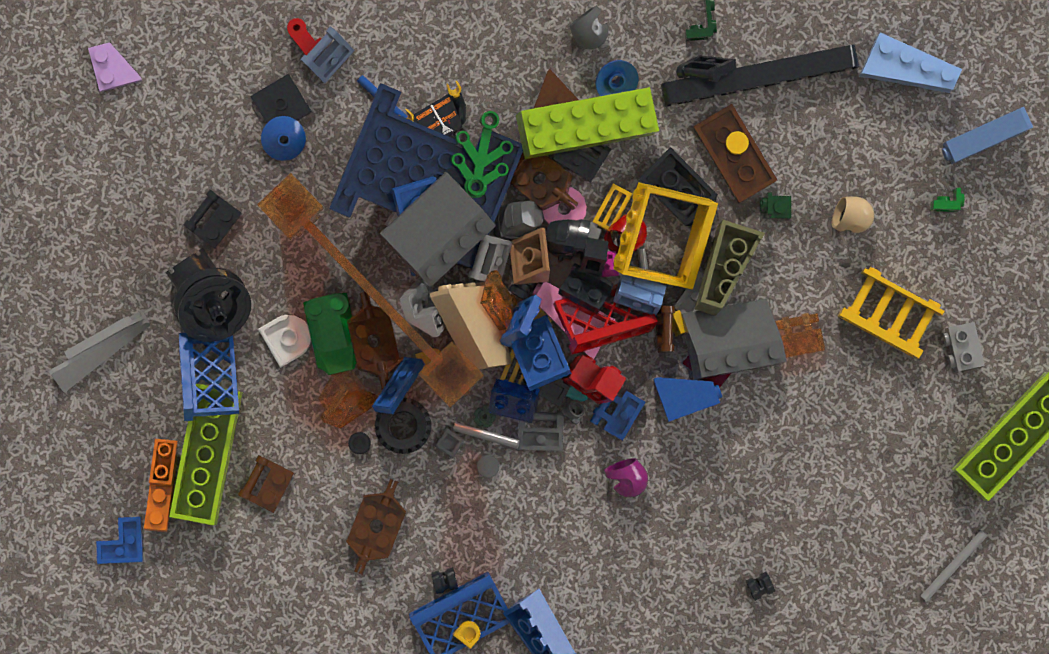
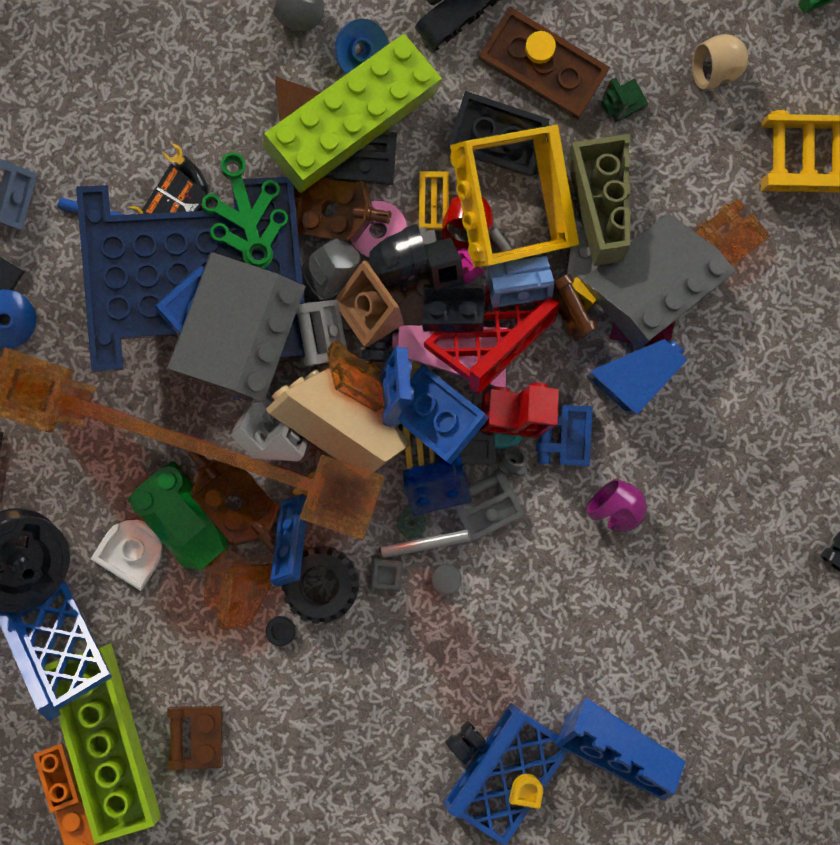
camera: 20 degrees left, 0 degrees up
(362, 539) = (351, 745): reddish brown plate -> none

